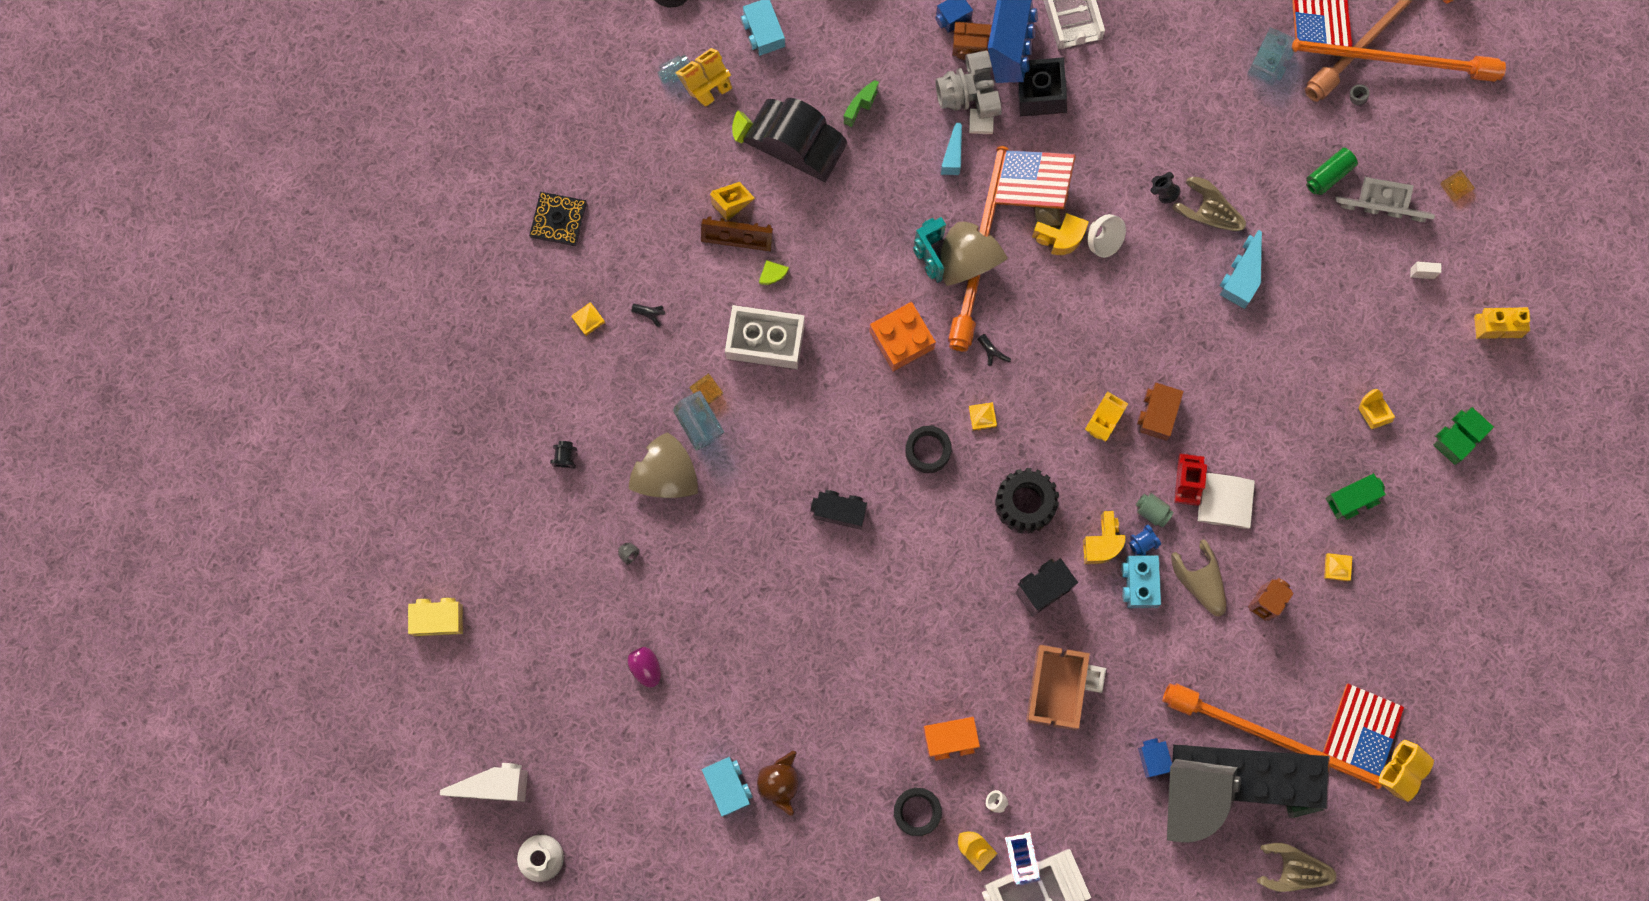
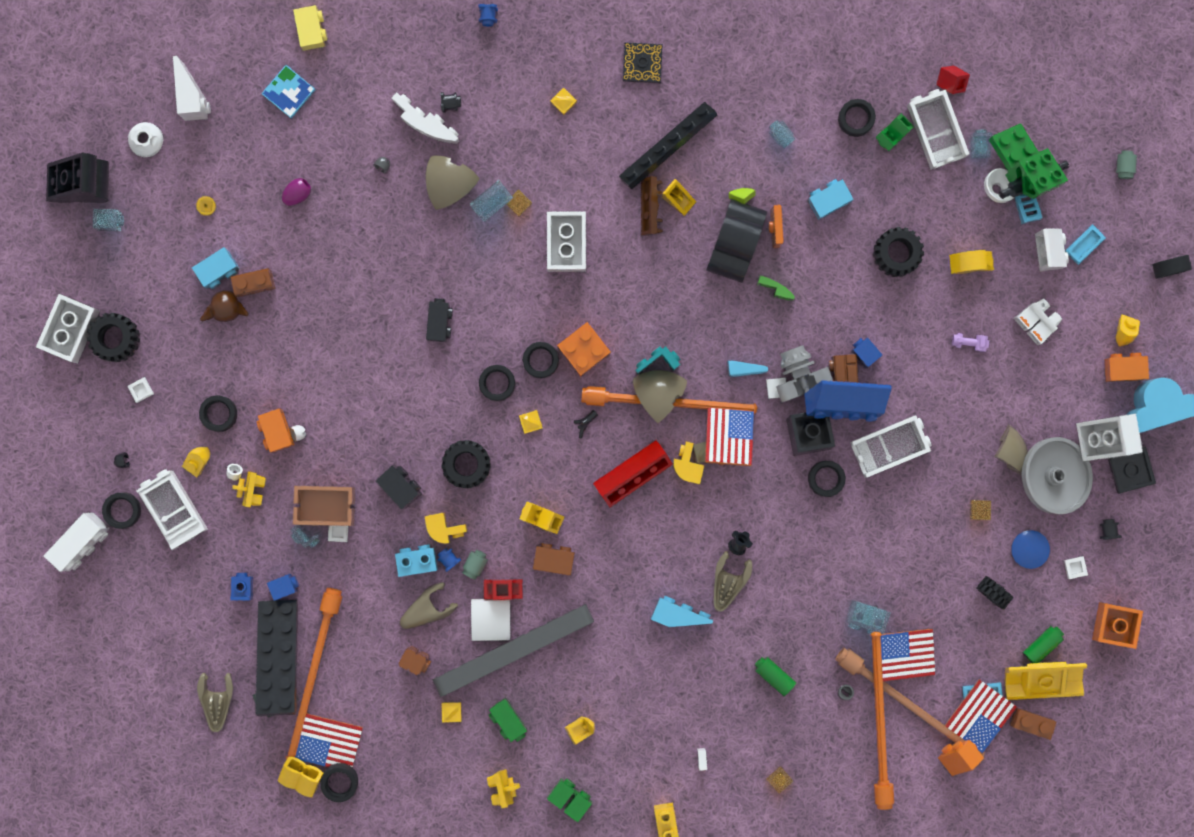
camera: 80 degrees right, 10 degrees up
(462, 393) = (487, 14): none -> blue brick
(512, 659) = (288, 91): none -> tile
(591, 484) = (430, 125): none -> white slope
(641, 789) = (205, 205): none -> yellow tile
(650, 312) = (576, 149): black bar -> none
(666, 202) = (668, 145): none -> black plate
(704, 75) = (770, 157): yellow hips -> none
(753, 739) = (253, 282): none -> dark orange brick
(772, 273) = (622, 239): lime tile -> none
(787, 86) = (776, 226): none -> orange plate
(905, 373) = (526, 357): none -> black tyre
(955, 708) = (297, 432): none -> white hinge
(1019, 842) = (206, 491): slope -> none
(1023, 787) = (251, 481): none -> yellow hips
(1065, 299) = (632, 473): none -> red brick
(1092, 727) = (300, 536): none -> clear light blue bracket
(1095, 95) = (812, 476): none -> black tyre
(1110, 238) = (689, 502): white piece -> none
(1139, 817) = (247, 592): none -> blue brick
(1199, 799) = (253, 621): dark grey brick -> none
(1270, 479) = (513, 650): none -> dark grey beam
(1385, 196) = (758, 721): light grey bracket -> none
(1431, 518) = (505, 788): none -> yellow hips
(1435, 717) = (343, 768): none -> black tyre

